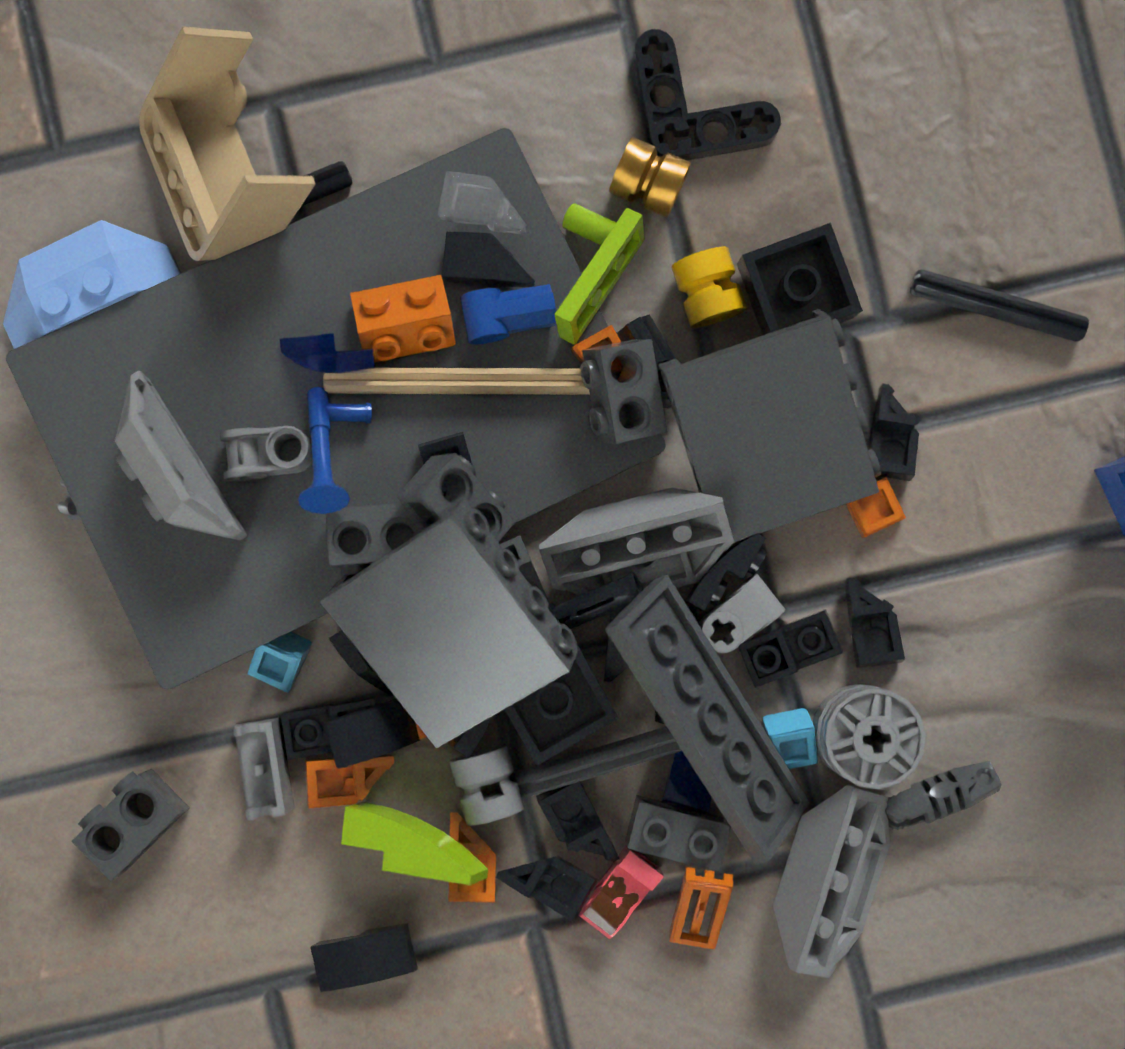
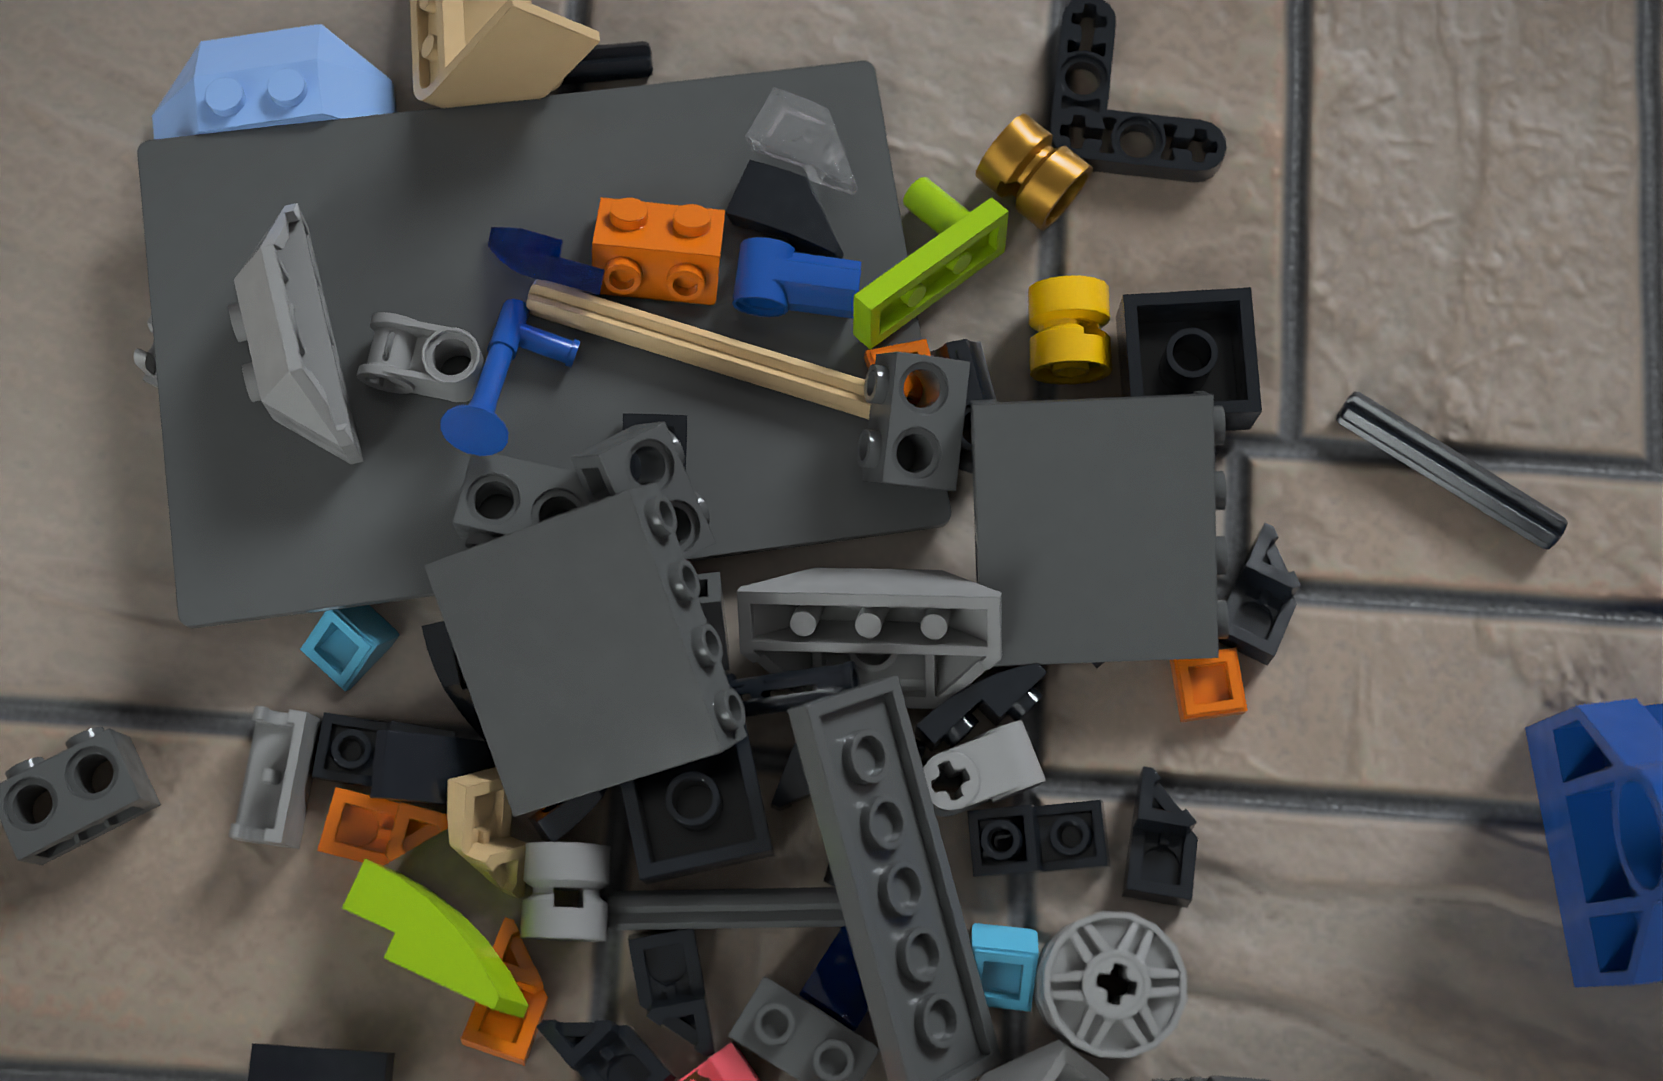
camera: 20 degrees right, 10 degrees down
(415, 759) = (482, 828): none -> tan slope

